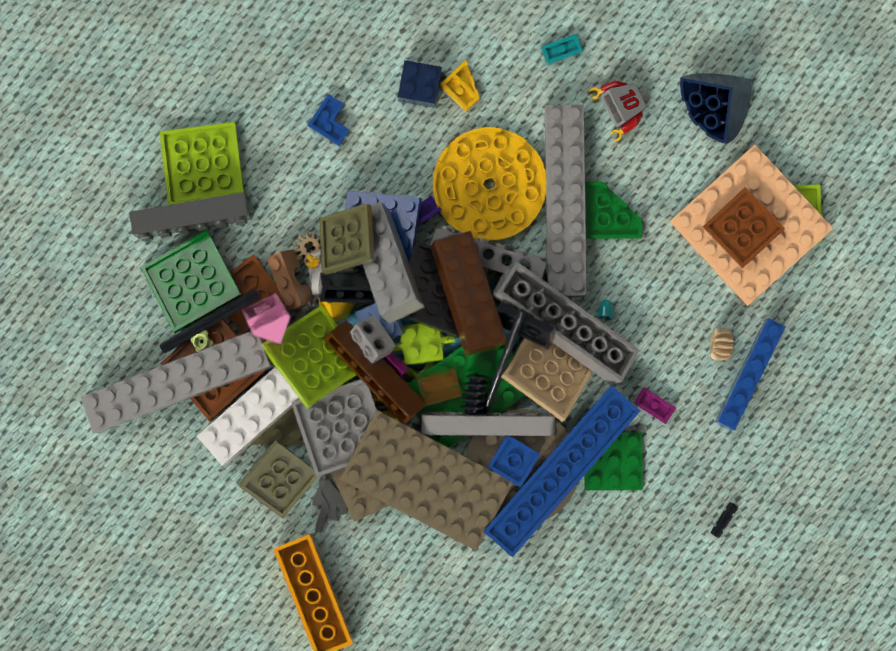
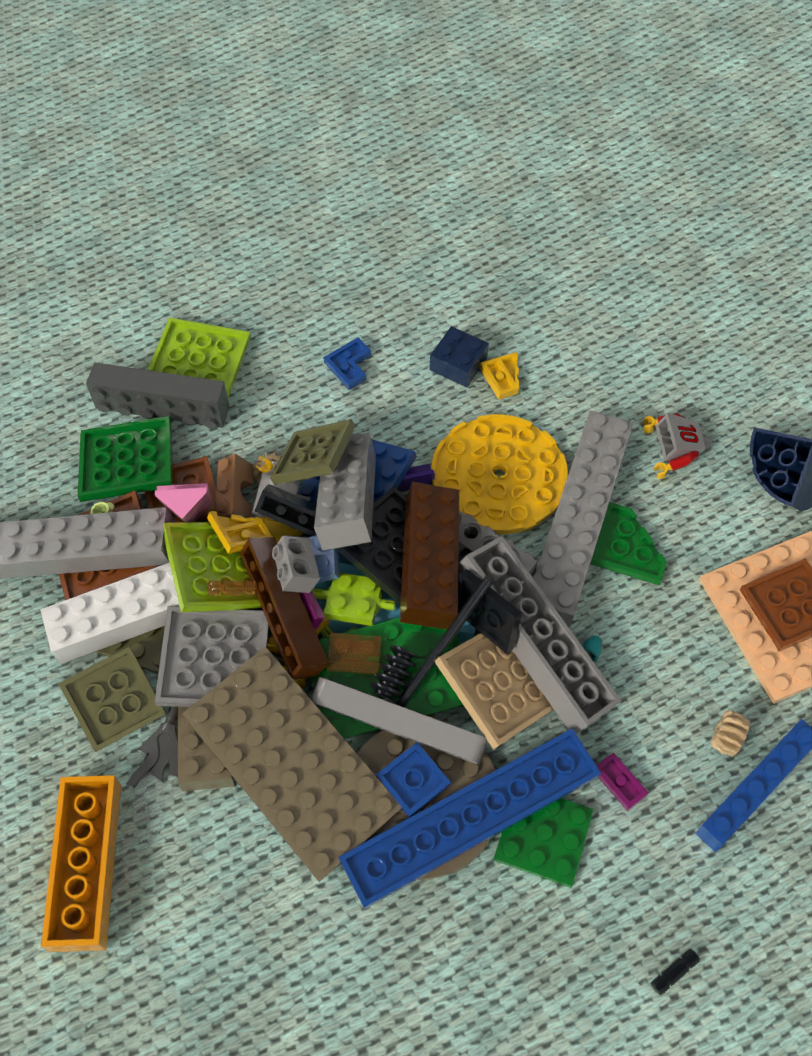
camera: 20 degrees right, 25 degrees down
(210, 320) = (118, 496): black axle -> none
(316, 324) = (237, 530): none -> yellow wing
(333, 374) = (233, 588): none -> clear orange axle
(561, 49) = (625, 373): teal plate -> none

